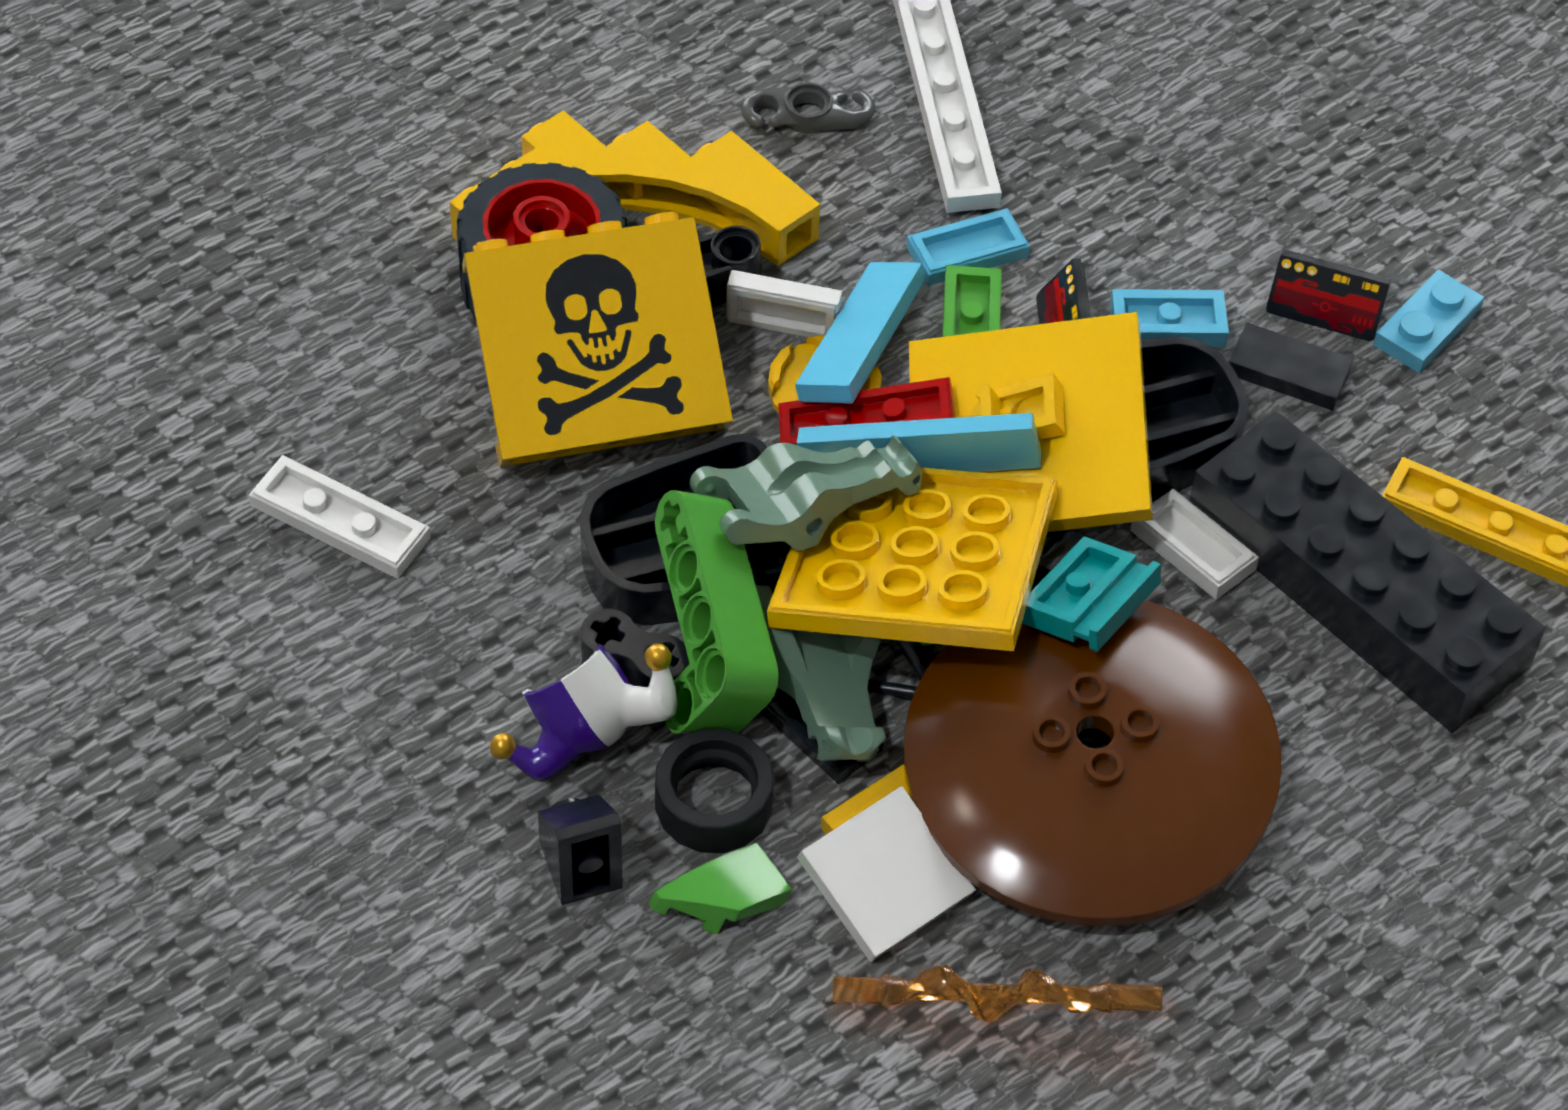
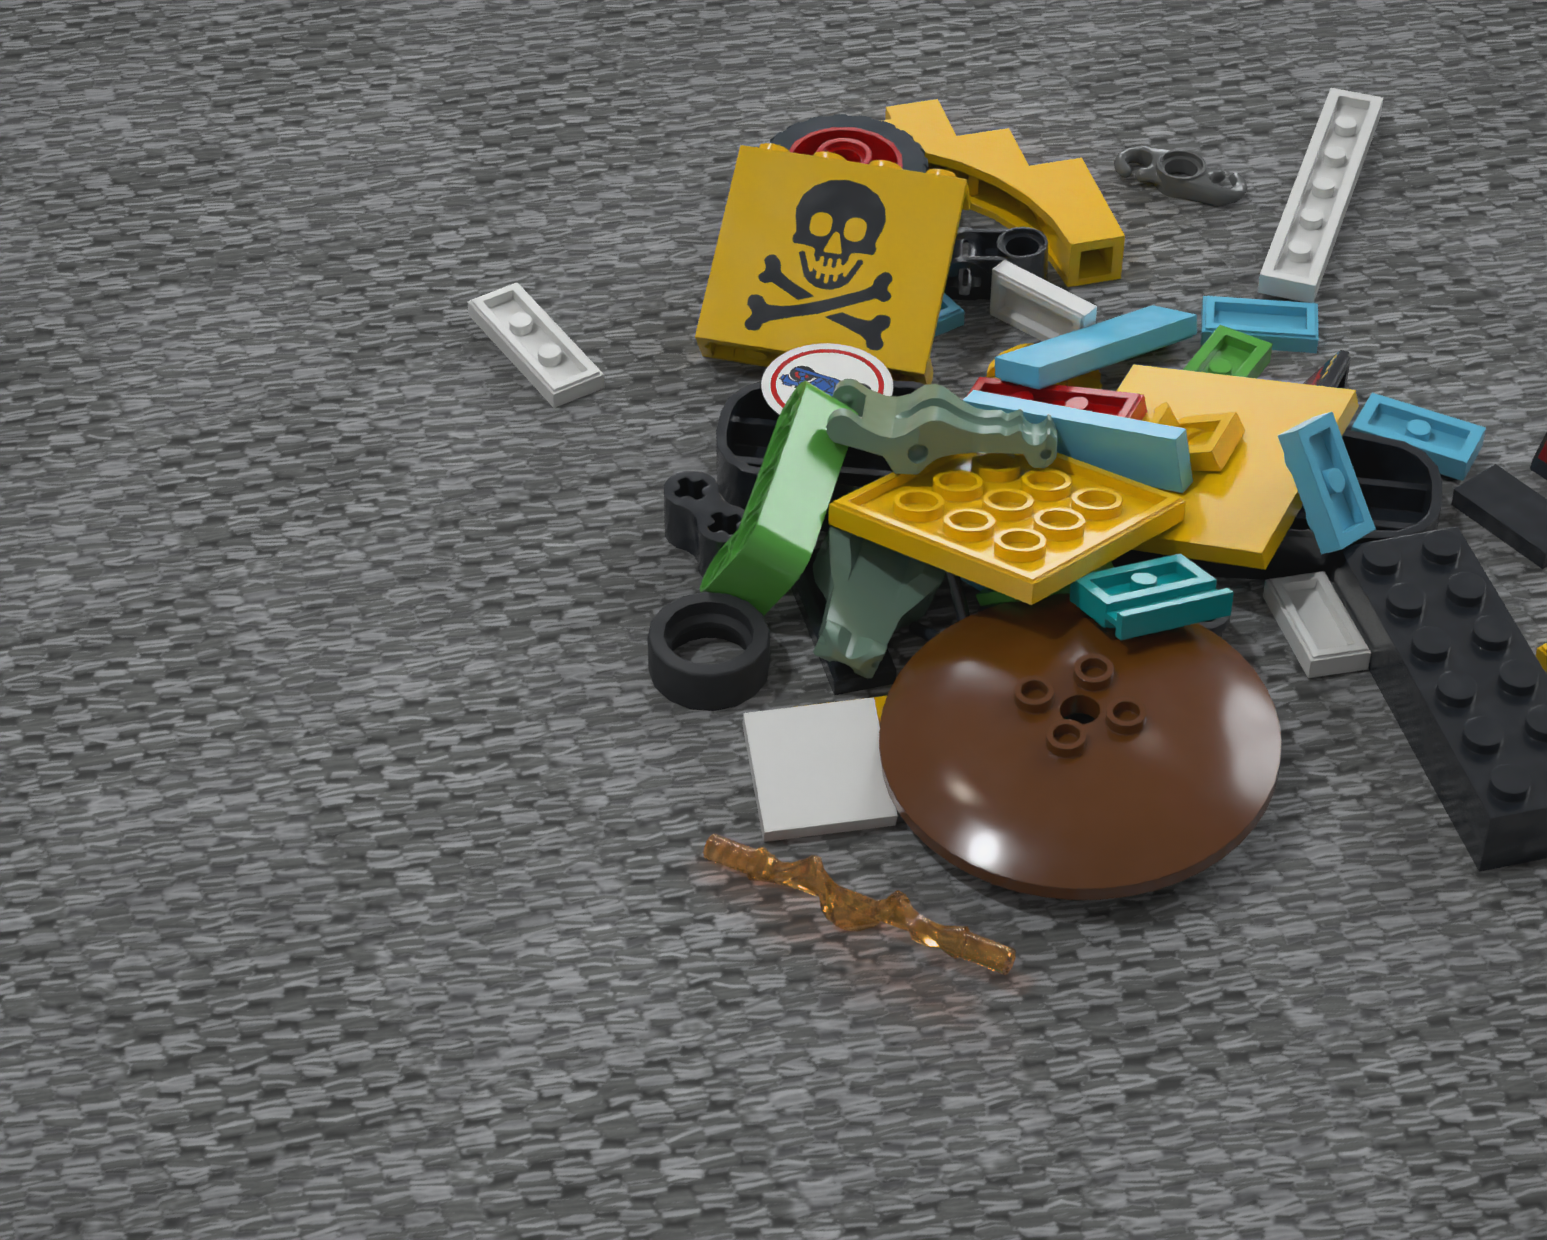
camera: 30 degrees right, 10 degrees down
(582, 847) = (551, 647): black slope -> none
(589, 712) = (633, 543): piece -> none
(649, 461) = (824, 368): none -> white sticker
(725, 888) = (665, 728): bright green slope -> none
(1168, 418) = (1326, 482): none -> medium azure plate

